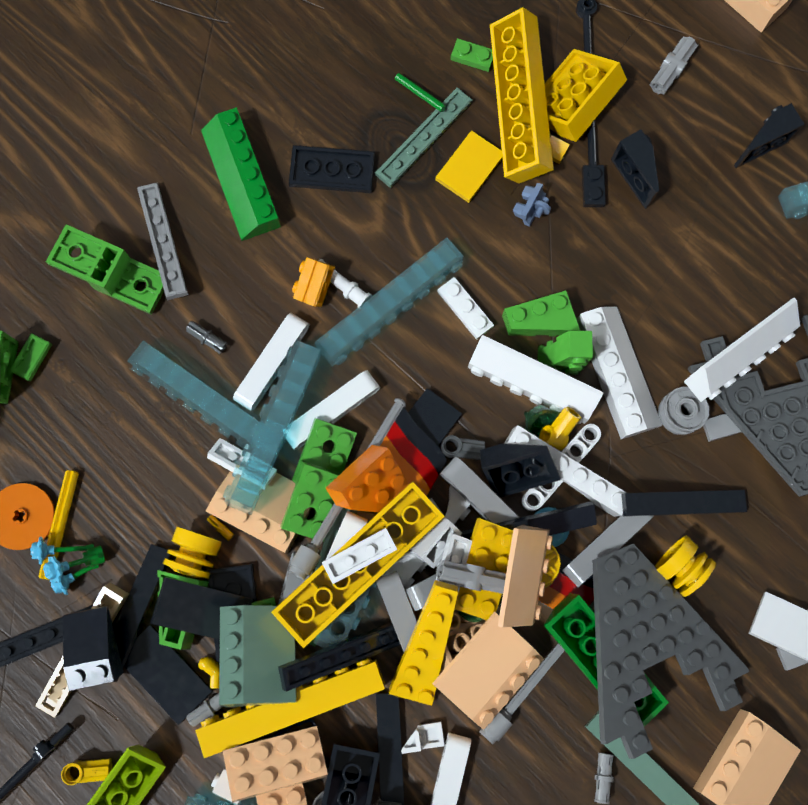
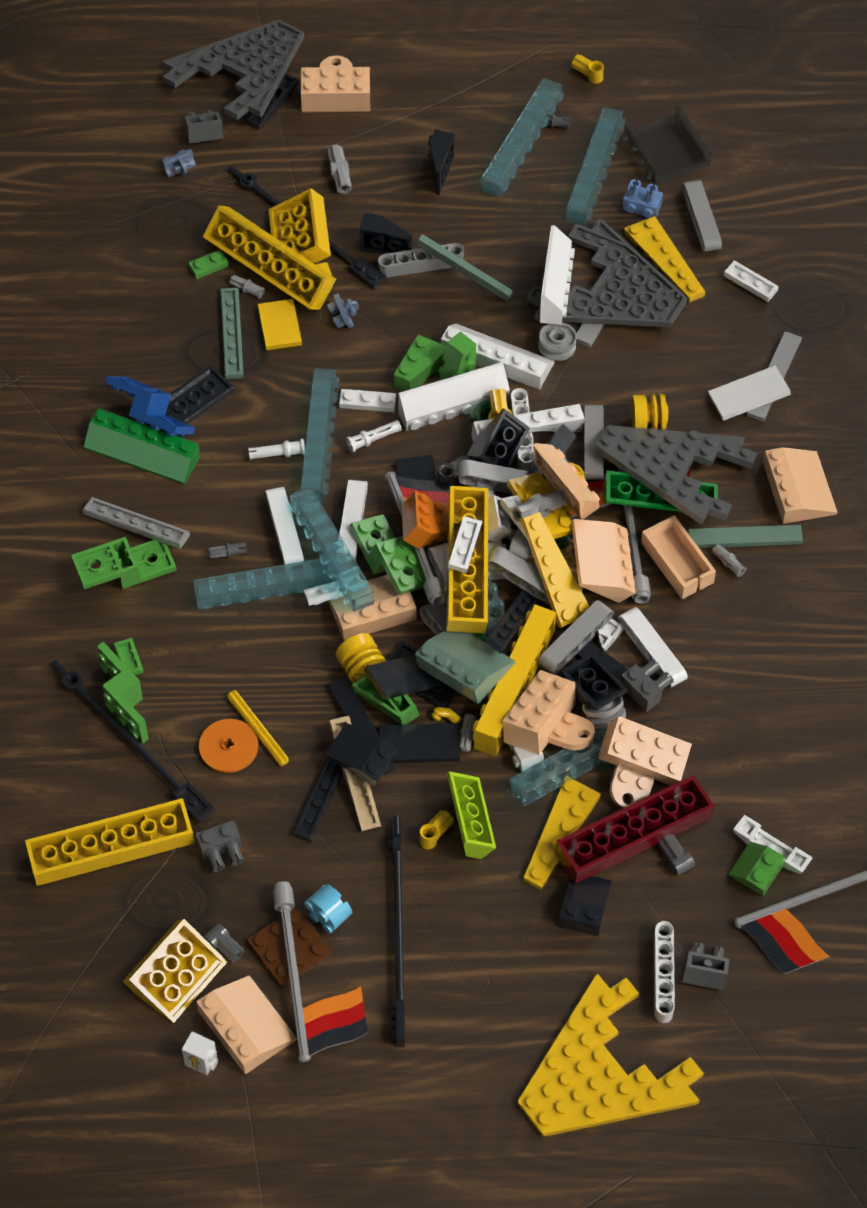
camera: 45 degrees left, 20 degrees down
(54, 569) = (293, 729): plant -> none
(277, 144) = (149, 405): none -> blue bracket
(313, 282) = (260, 460): light orange brick -> none
(388, 718) = (575, 637): none -> light grey beam
(419, 342) = (365, 438): none -> white pin
(420, 92) = (199, 310): green bar -> none
(480, 105) = (247, 286): none -> light grey axle
(559, 734) = (678, 557): none -> light nougat piece
(661, 218) = (415, 261): none -> light grey beam
(675, 262) = (465, 268): none -> sand green tile
(683, 503) = (611, 383): black tile -> none

